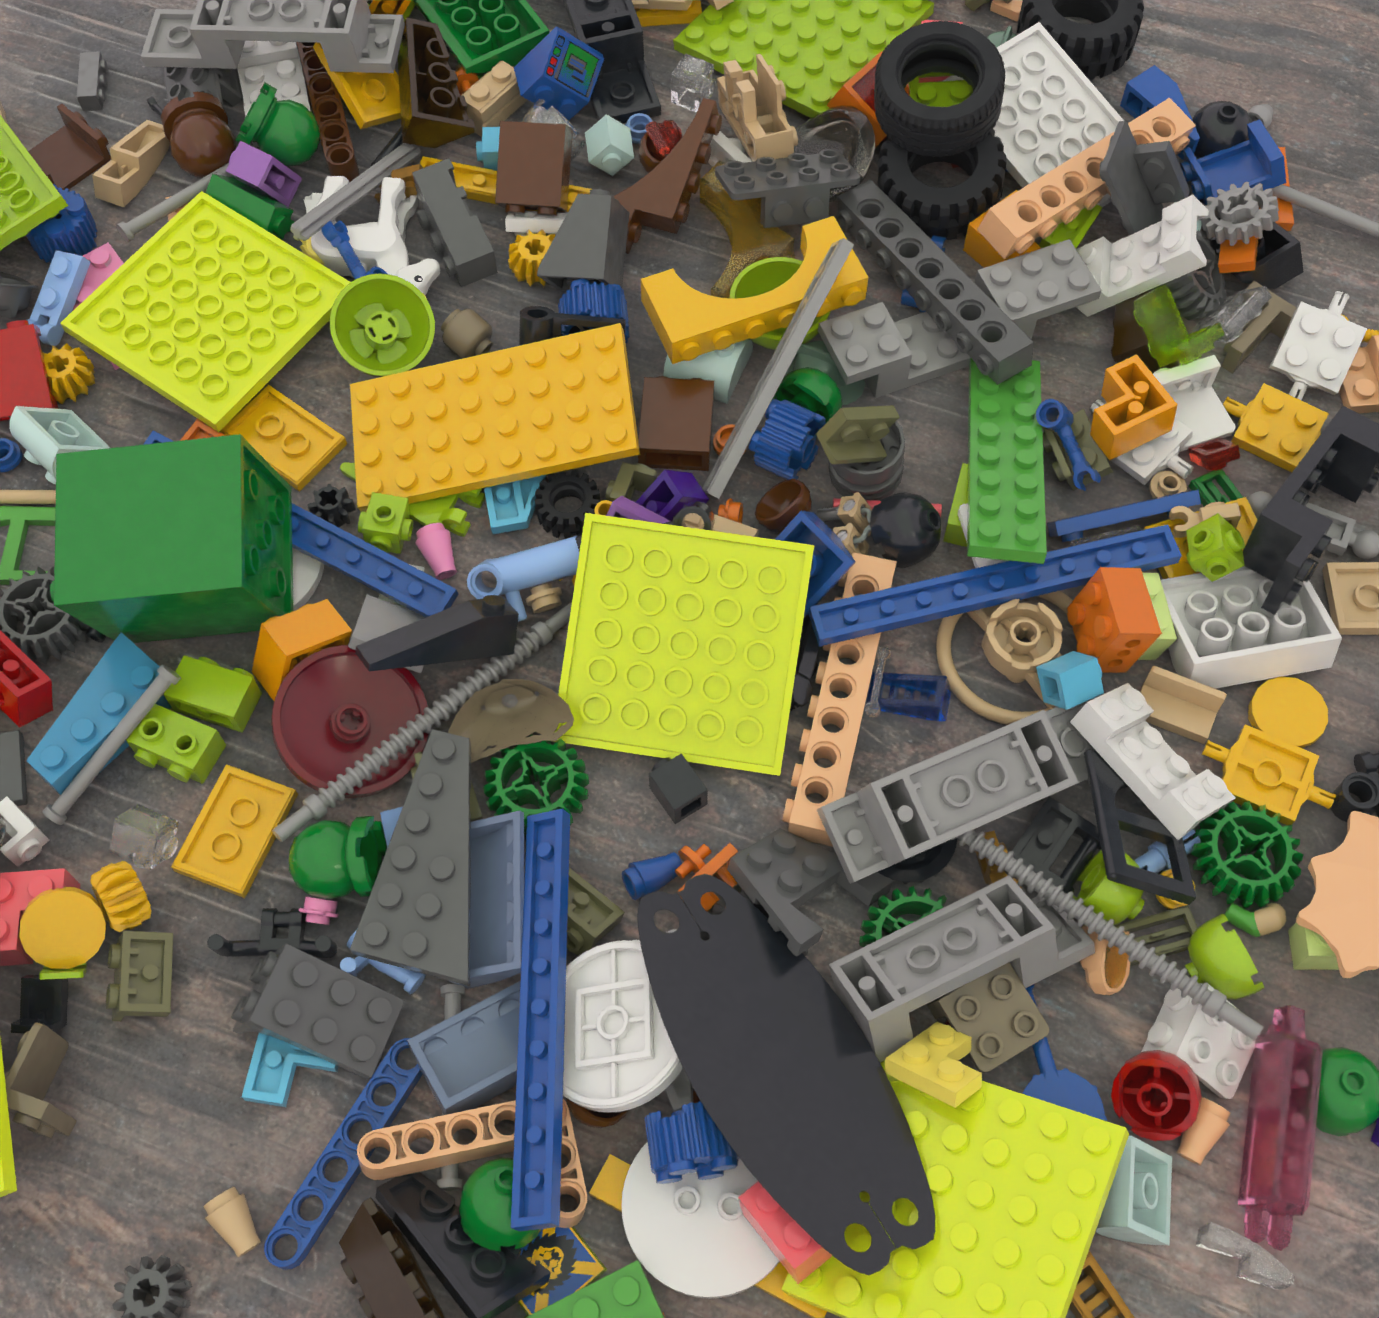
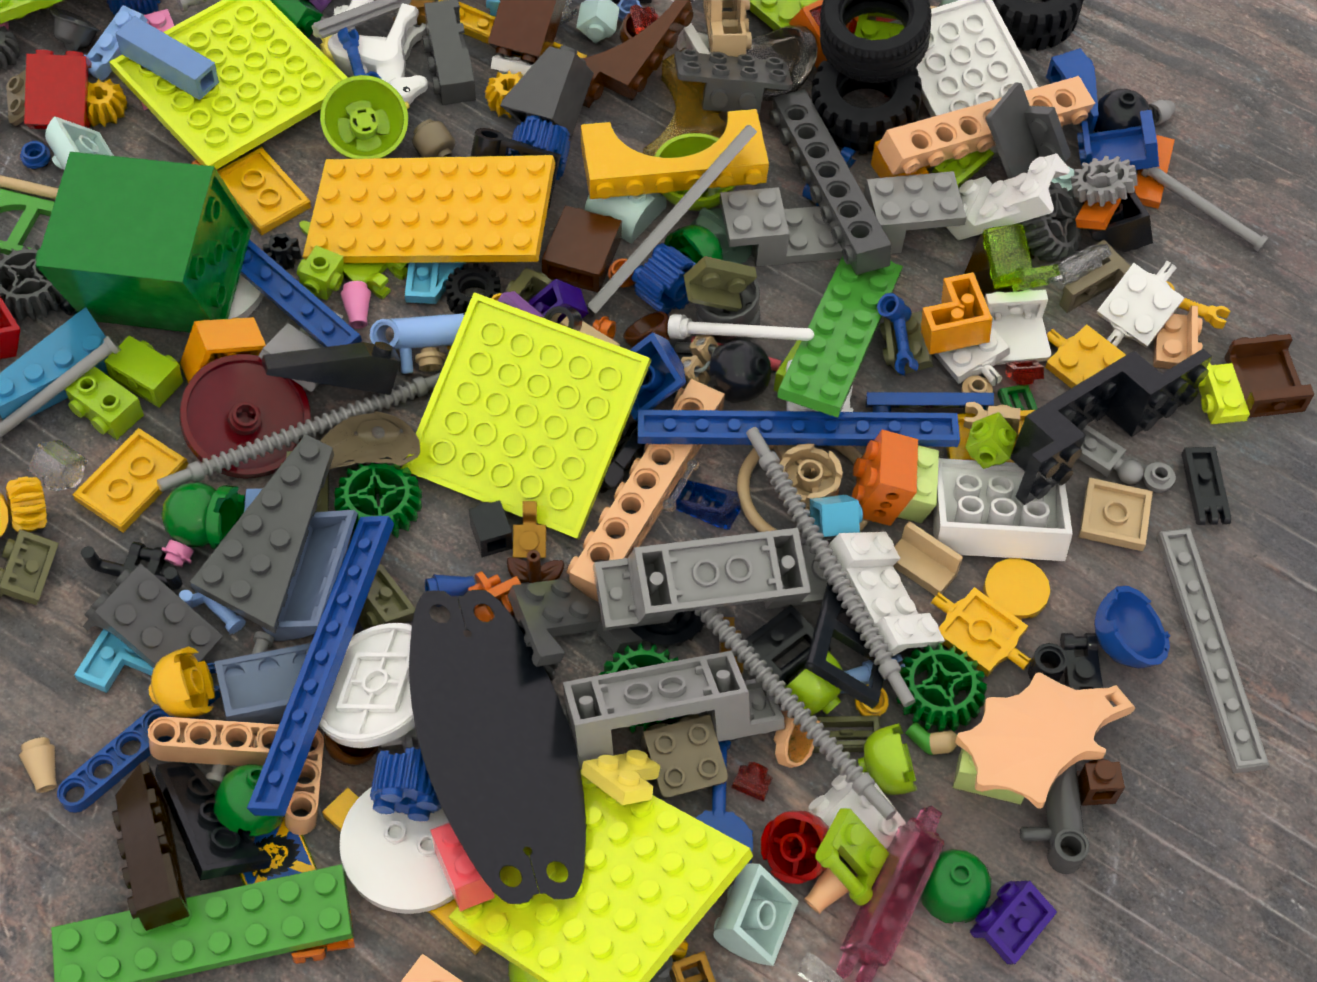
camera: 10 degrees right, 5 degrees down
(129, 303) = (167, 57): none -> medium blue brick
(379, 1082) = (182, 684): none -> yellow cylinder
(725, 788) = (529, 535): none -> pearl gold plate
(749, 826) = (532, 571): none -> reddish brown plant
(824, 492) = (681, 327): none -> white piece
(1073, 1021) = (753, 780): none -> clear red plate
(1192, 851) = (888, 667): none -> light grey hose
(1229, 1080) = (858, 848): none -> lime plate

